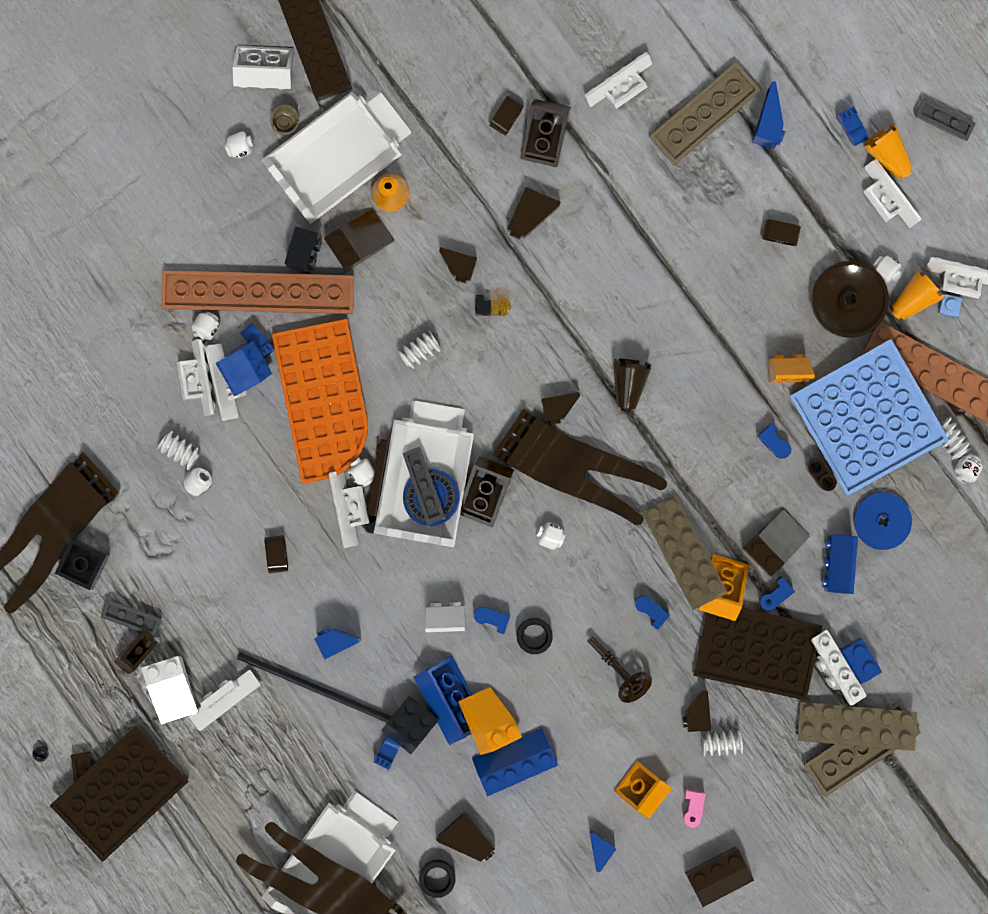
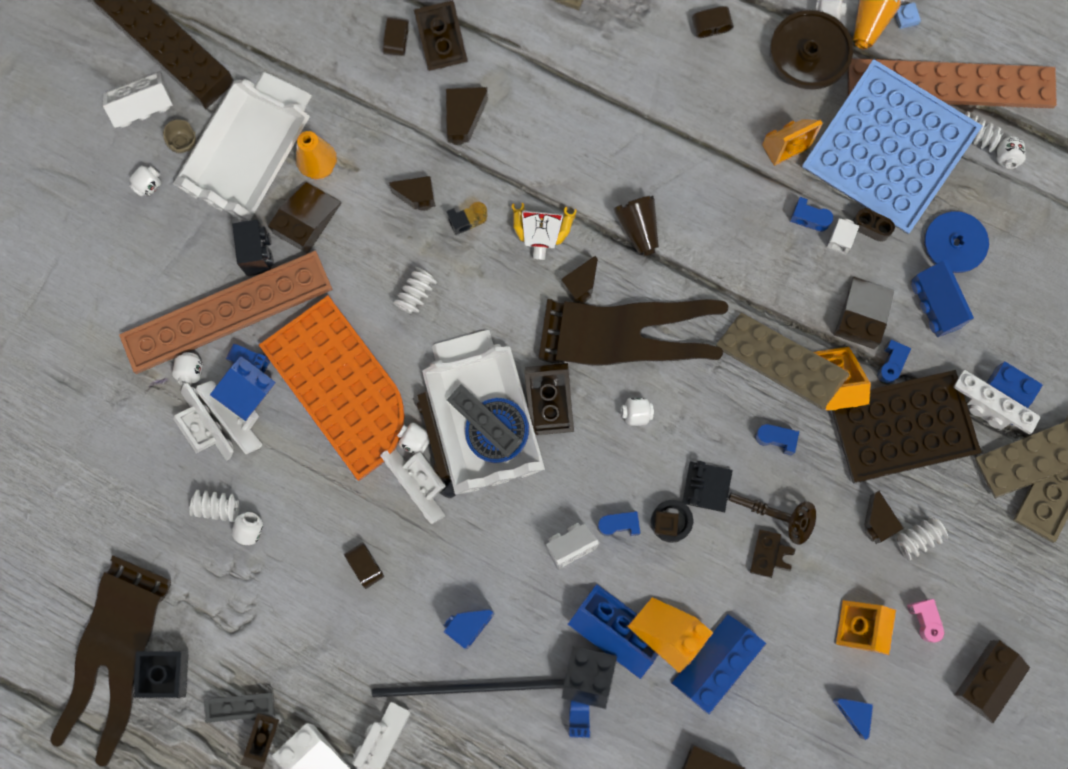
camera: 20 degrees left, 10 degrees down
(527, 637) = (666, 523): none -> dark brown tile
(547, 347) = (541, 229): none -> torso
(576, 622) = (707, 486): none -> black hinge
(597, 698) = (770, 554): none -> dark brown plate
(791, 471) = (843, 236): none -> white brick

